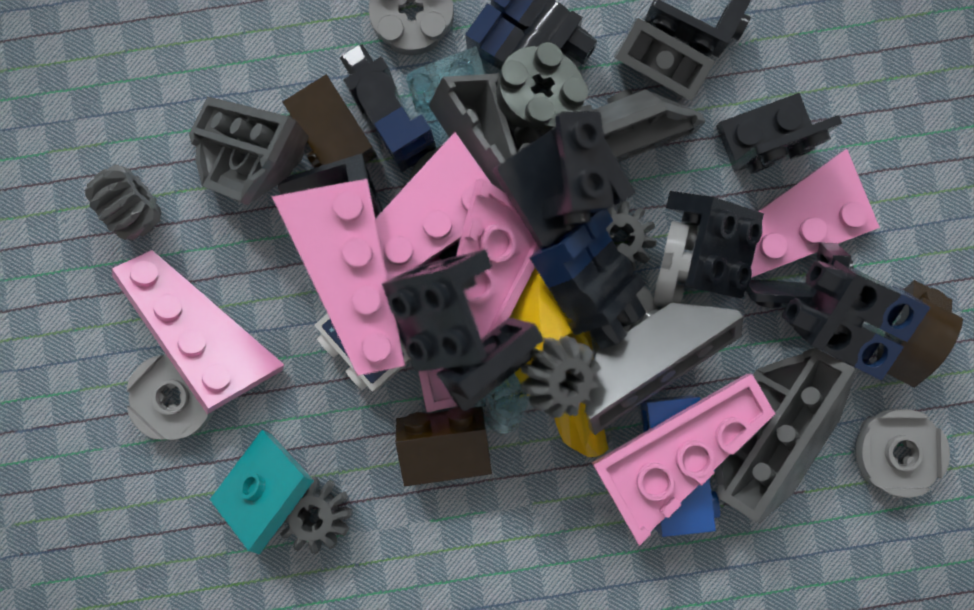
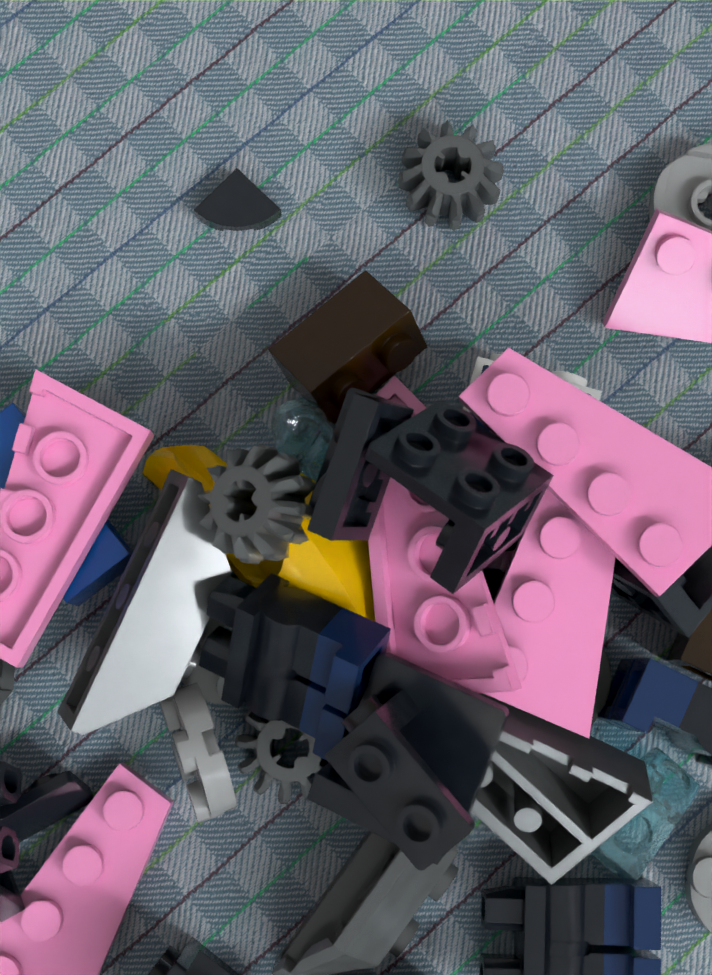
camera: 145 degrees right, 5 degrees down
(261, 491) = (531, 162): teal plate -> none
(453, 579) = (237, 206): none -> black tile
(542, 66) = (524, 908): pearl dark grey plate -> none
(723, 242) = (152, 817): black bracket -> none

